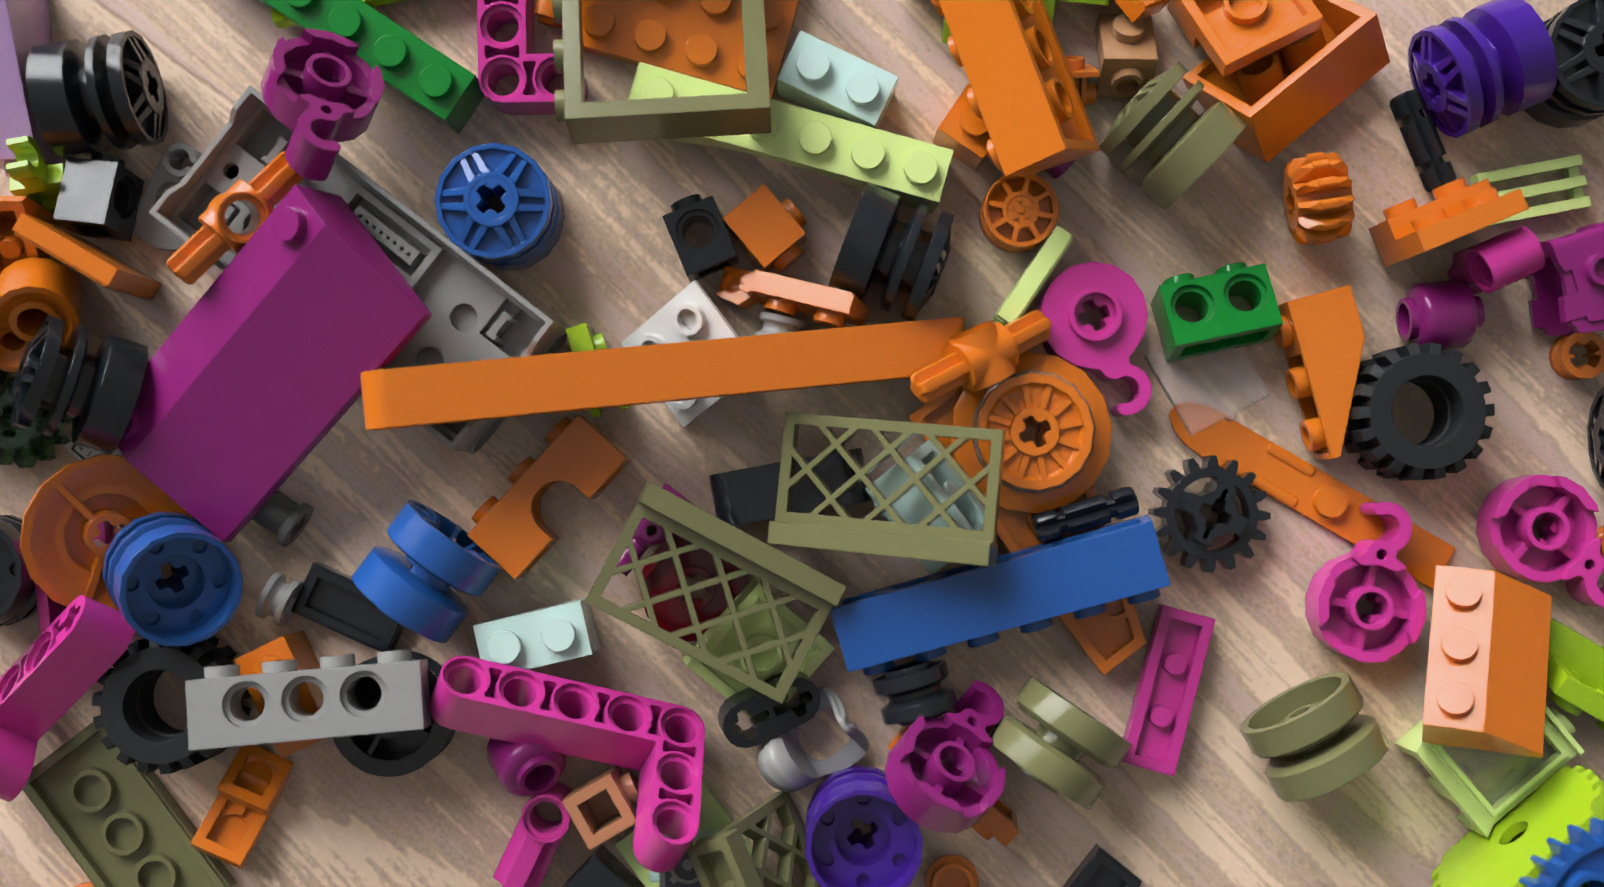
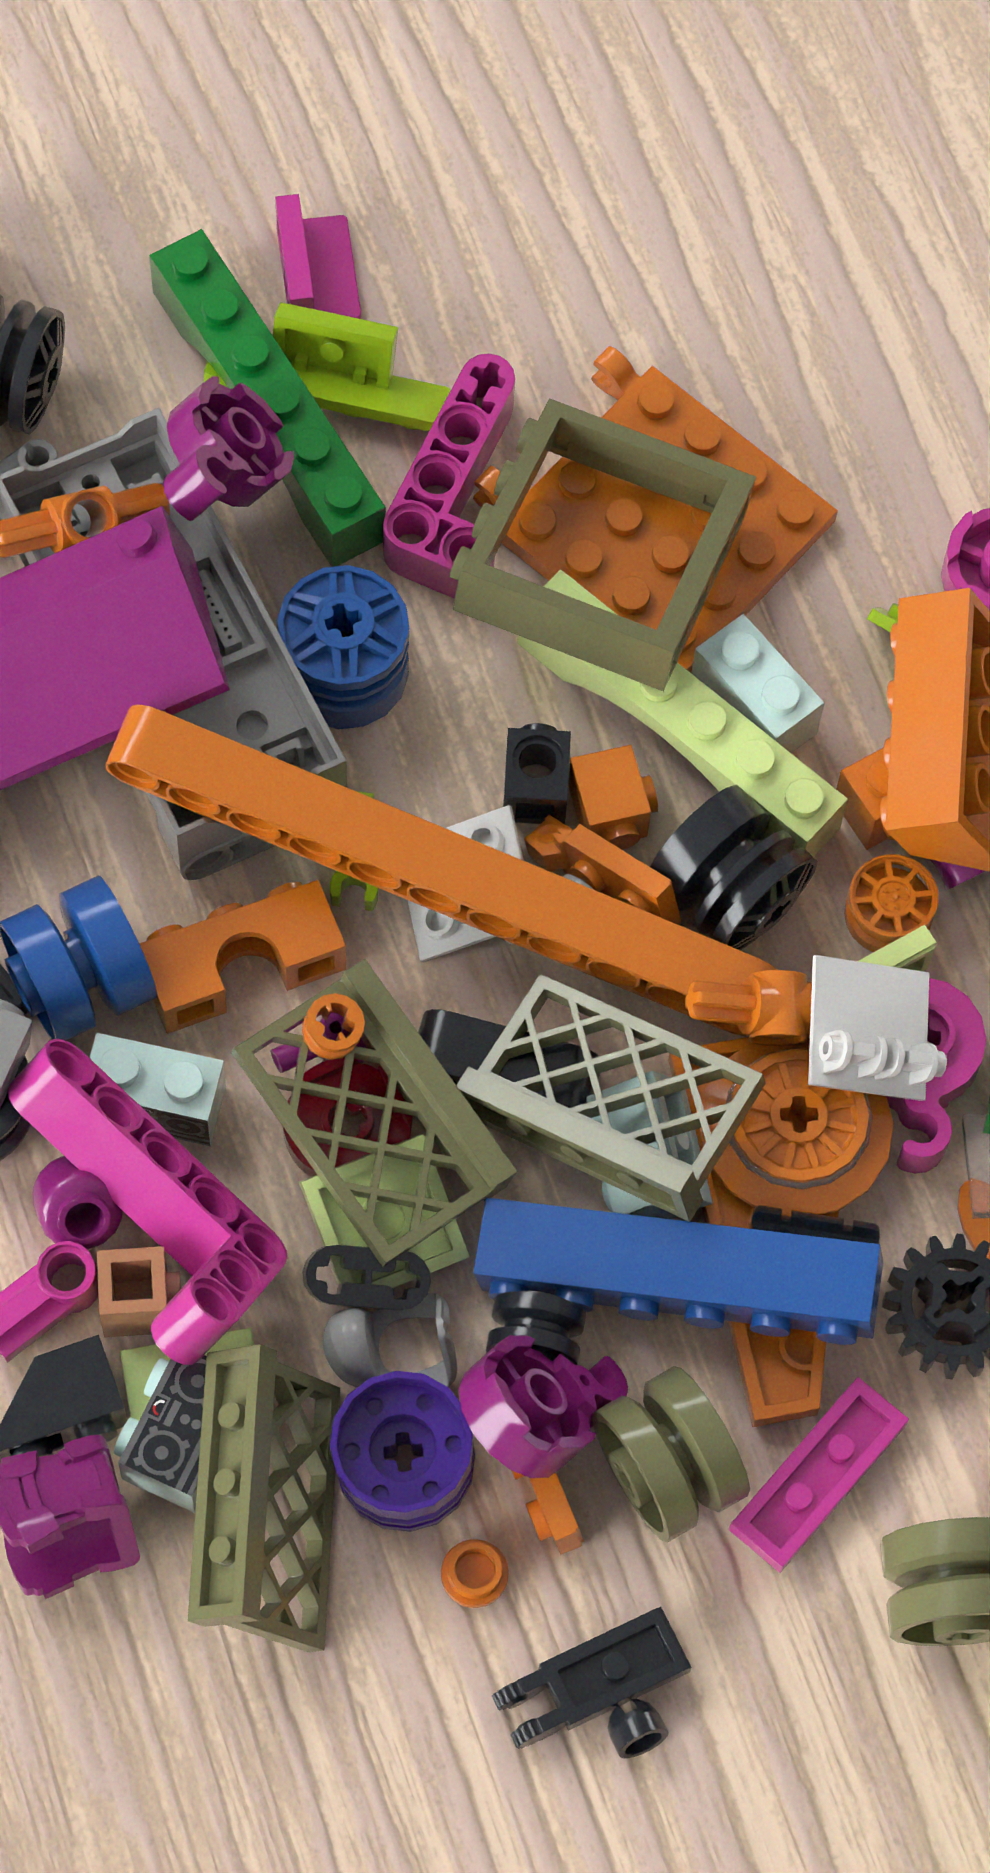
camera: 20 degrees right, 20 degrees down
(663, 534) = (352, 1022): none -> orange bush
(1062, 341) = (871, 1029): none -> white hinge

